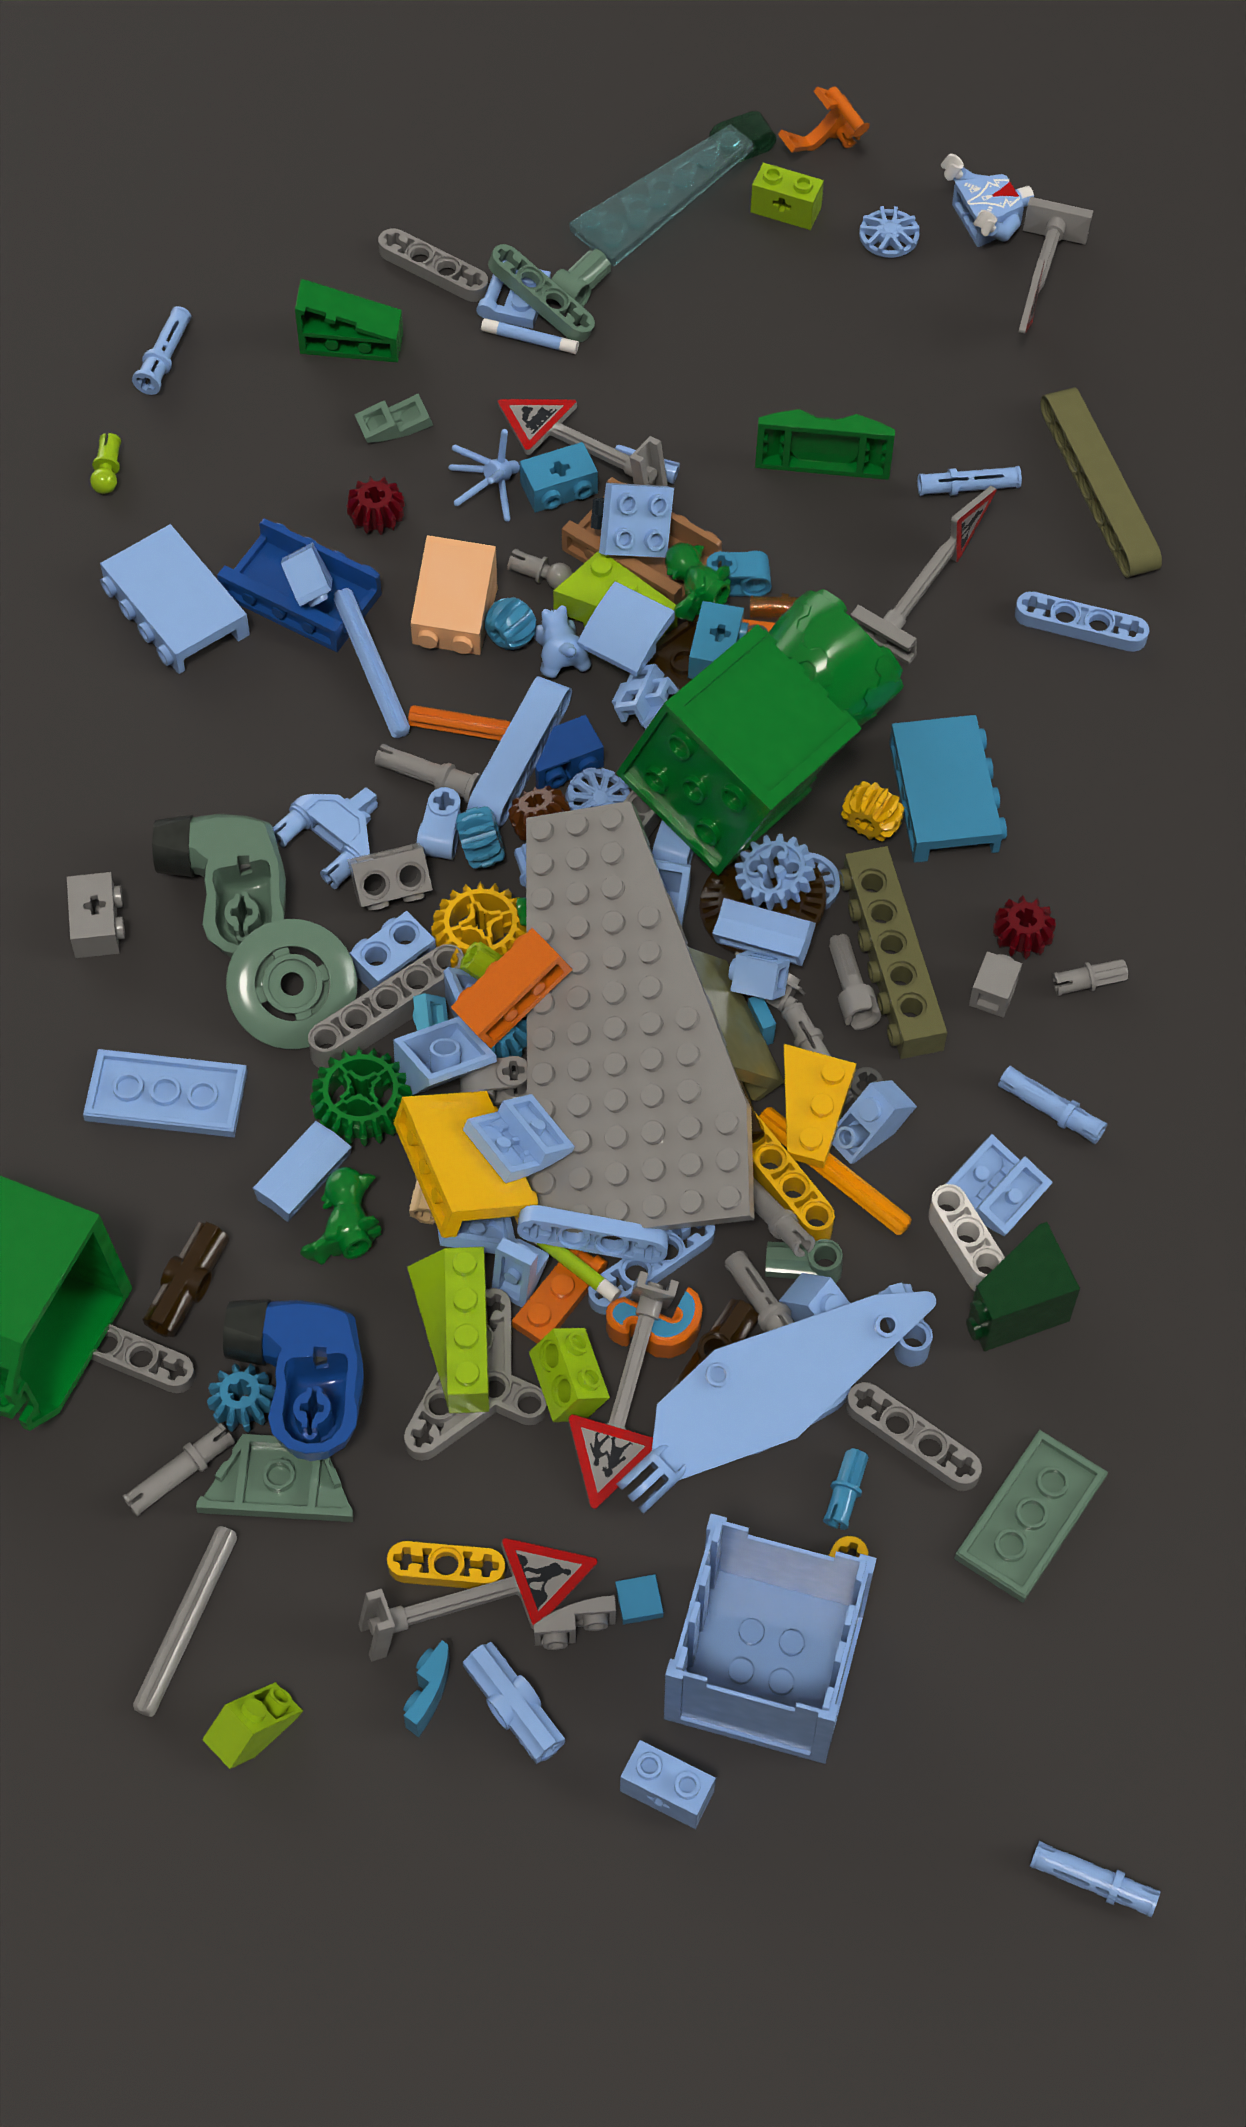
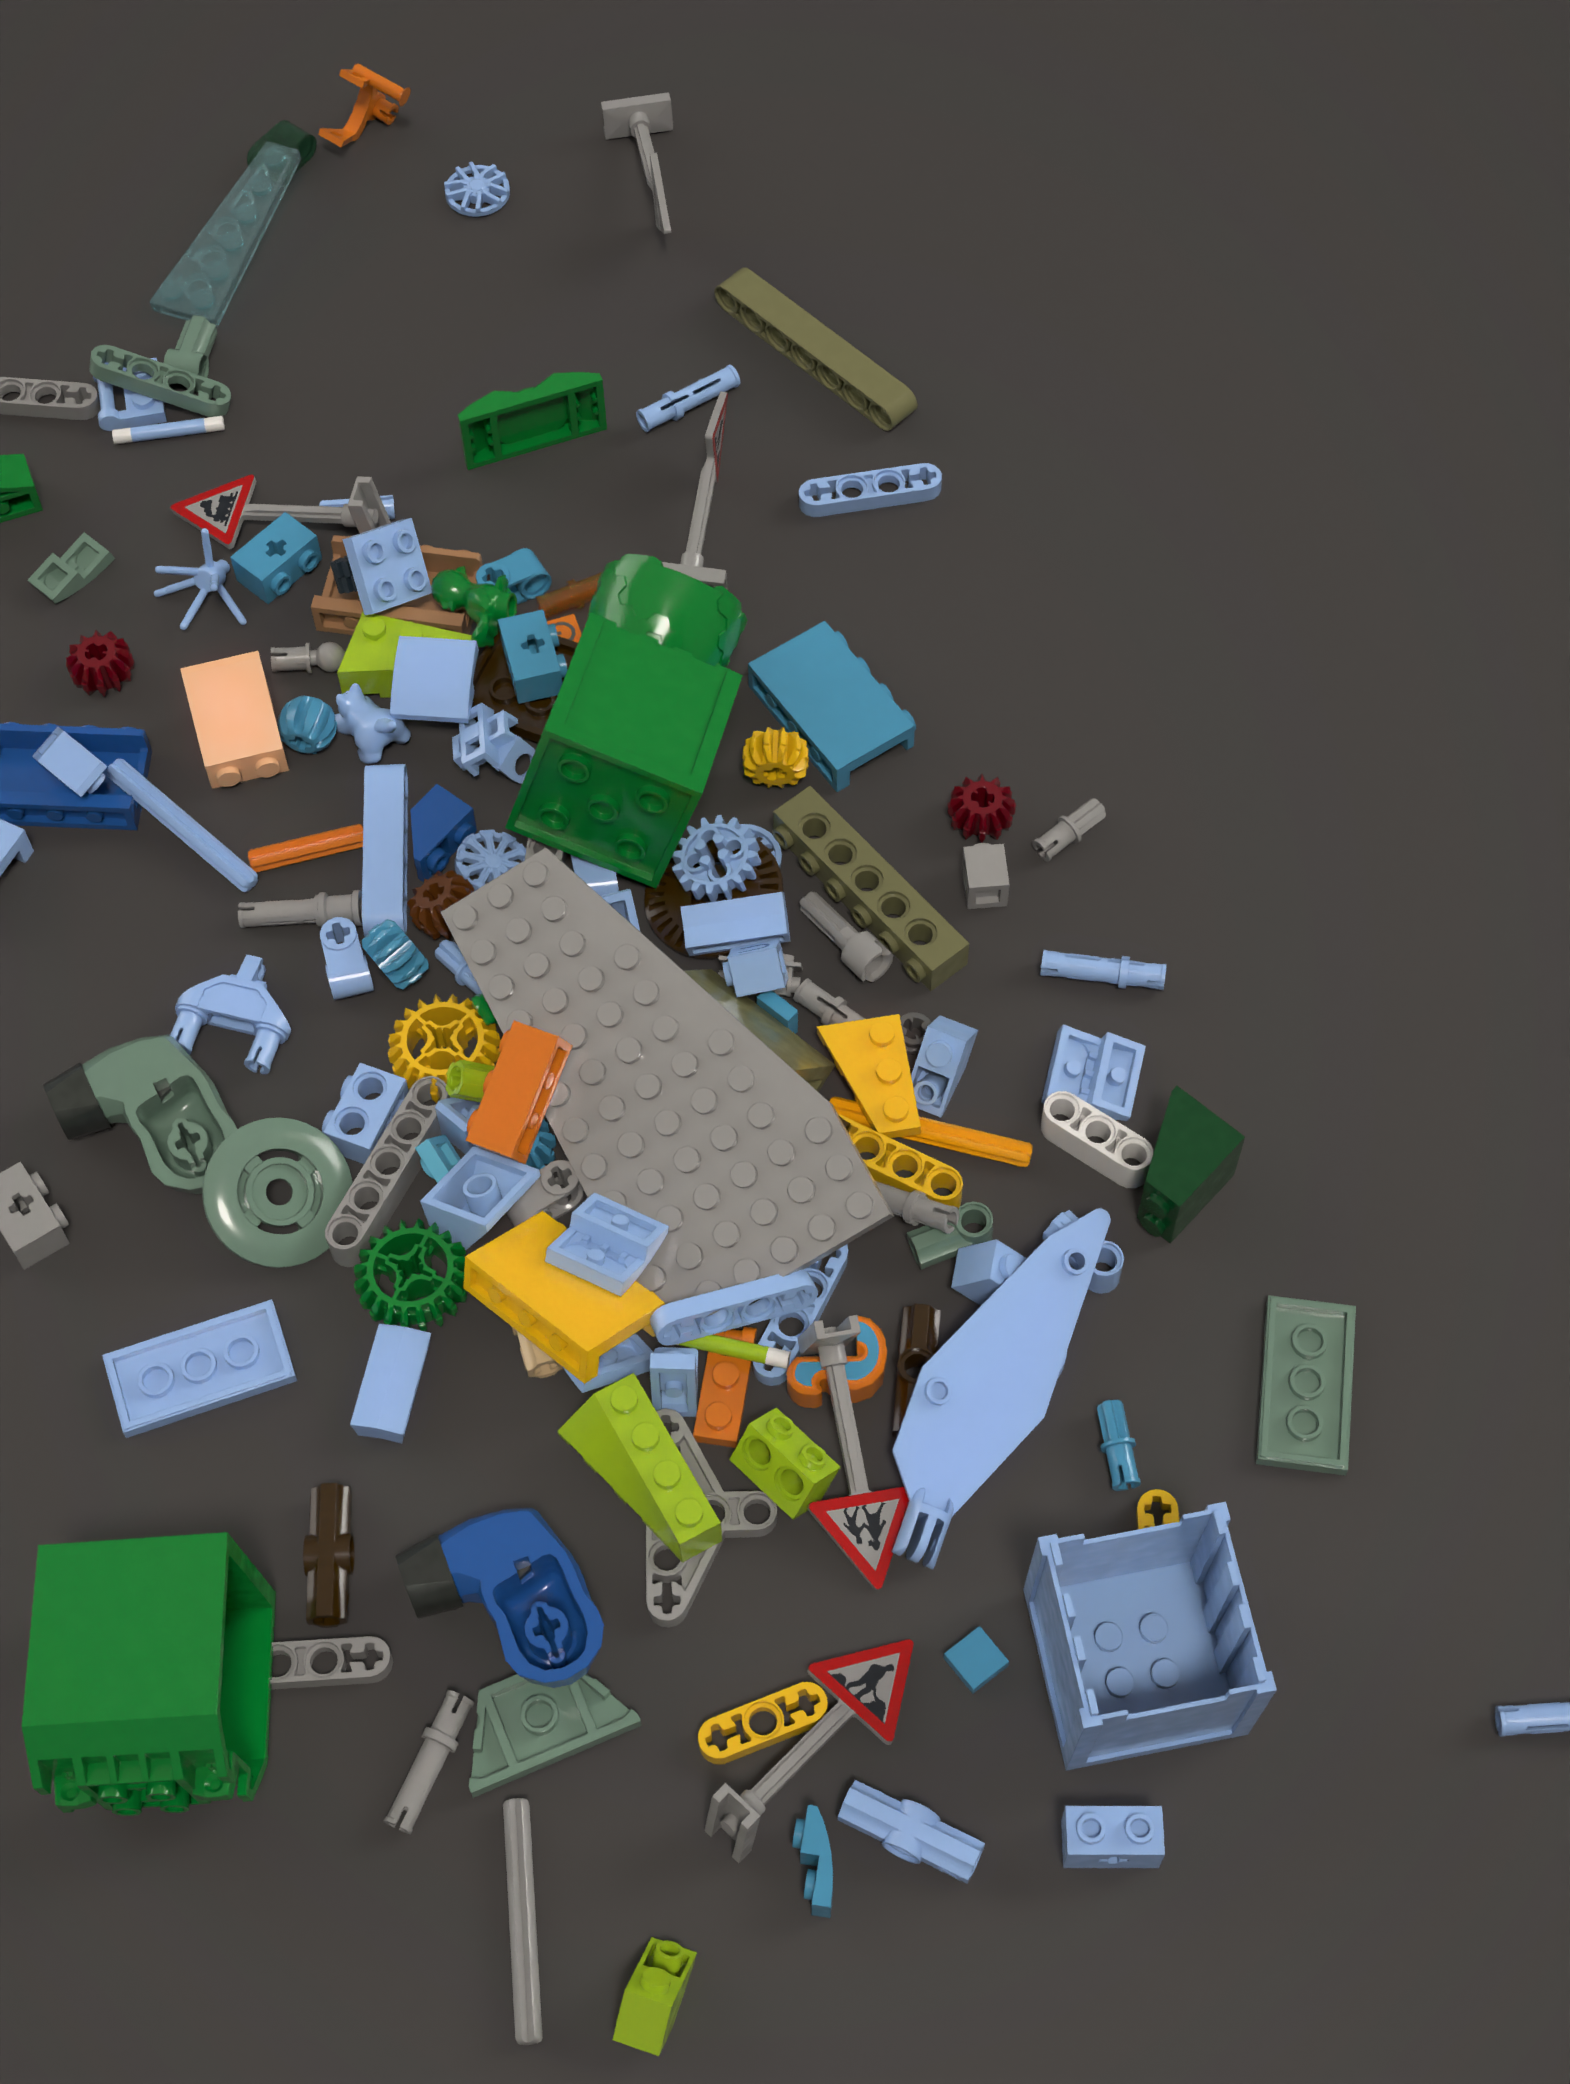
camera: 25 degrees left, 0 degrees up
(233, 1387) = (440, 1647): dark azure gear -> none
(348, 1227) = (472, 1418): green animal -> none
(389, 865) = (316, 1024): light grey brick -> none
(559, 1627) = (919, 1726): light grey slope -> none
(771, 1312) = (954, 1304): light grey pin -> none
(786, 196) = (358, 192): lime brick -> none
(918, 1430) = (1151, 1368): light grey beam -> none
(986, 203) = (558, 125): light blue torso -> none

